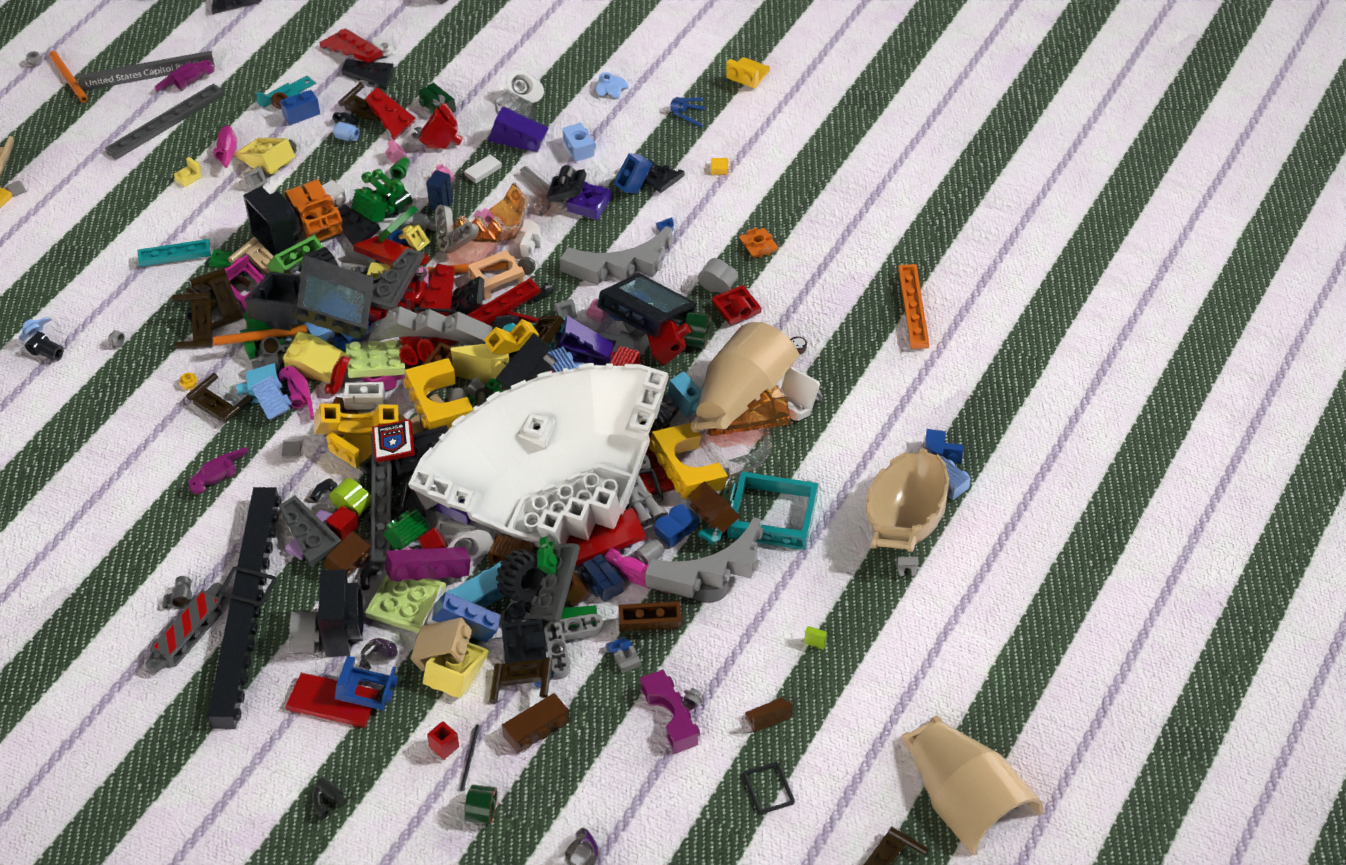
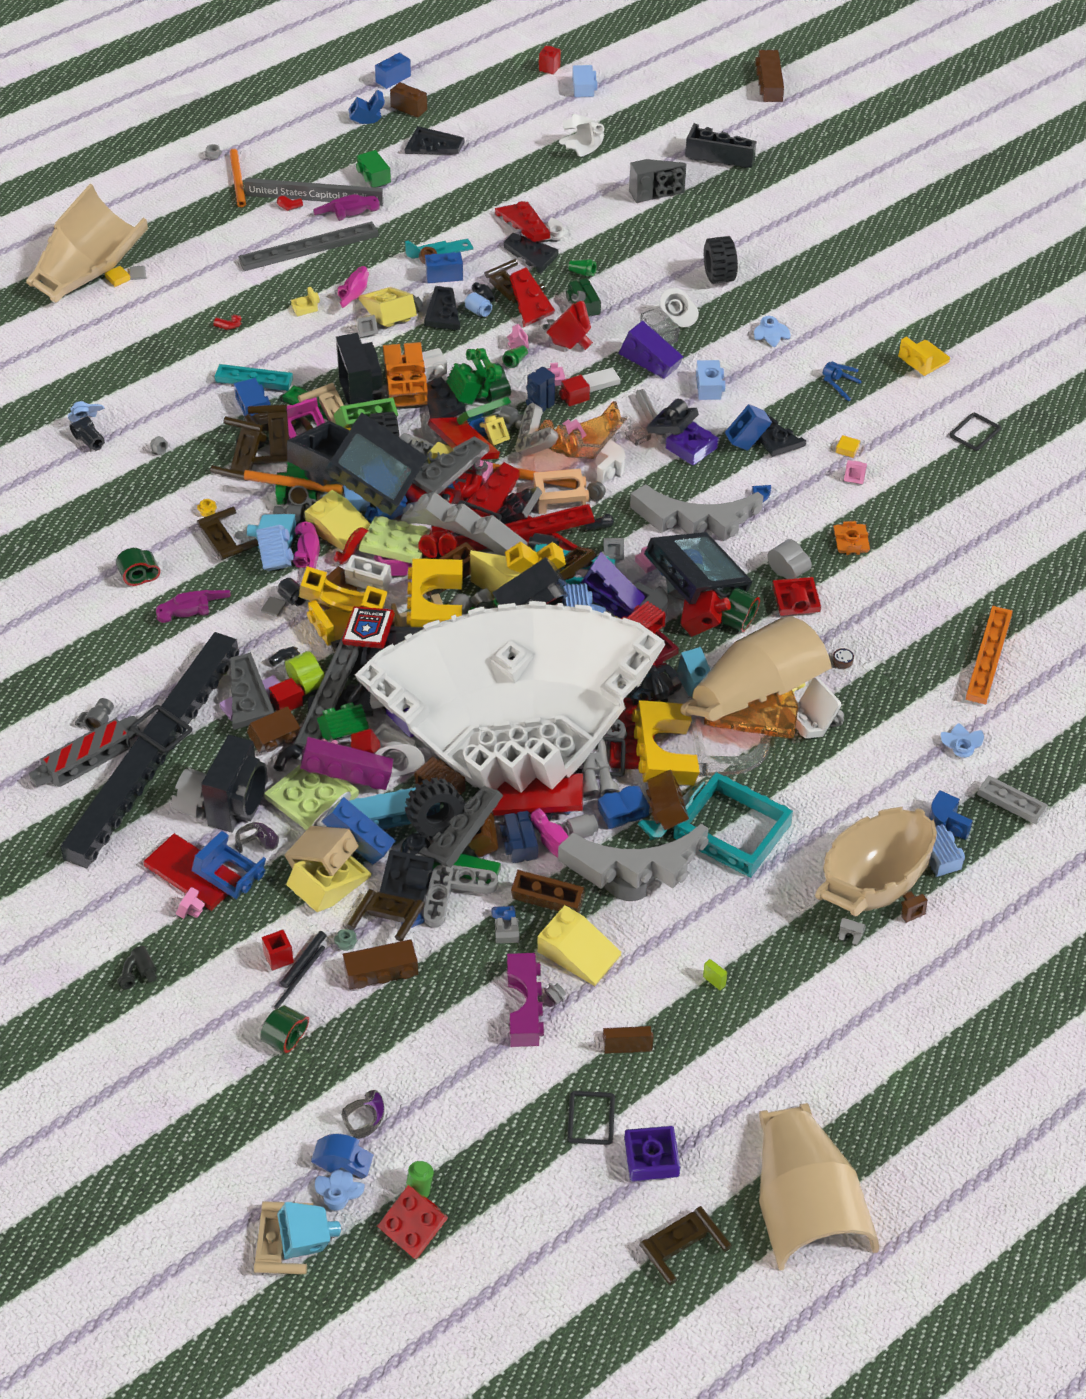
camera: 20 degrees right, 0 degrees up
(128, 88) = (289, 204): none -> red arm
(131, 209) = (230, 324): none -> red arm
(152, 451) = (137, 566): none -> dark green piece
(180, 271) = (250, 394): none -> blue brick
(193, 35) = (373, 169): none -> green brick
(302, 431) = (290, 590): none -> black brick
(316, 145) = (442, 309): none -> black wing
(346, 728) = (190, 904): none -> bright pink tile
(422, 73) = (584, 267): none -> green cone
(466, 741) = (303, 959): none -> black bar
(467, 183) = (575, 390): none -> red brick
(494, 717) = (345, 944): none -> sand green plate
(542, 34) = (720, 259): none -> black tyre
(546, 559) = (462, 796): green plate -> none
(693, 652) = (577, 946): none -> light yellow slope
(737, 185) = (855, 472): none -> bright pink tile
(813, 135) = (982, 443): none -> black piece
(844, 798) = (662, 1143): none -> dark purple brick
(923, 384) = (962, 741): none -> light blue plate
(947, 530) = (913, 906): none -> reddish brown tile
(984, 418) = (1012, 799): none -> light grey plate

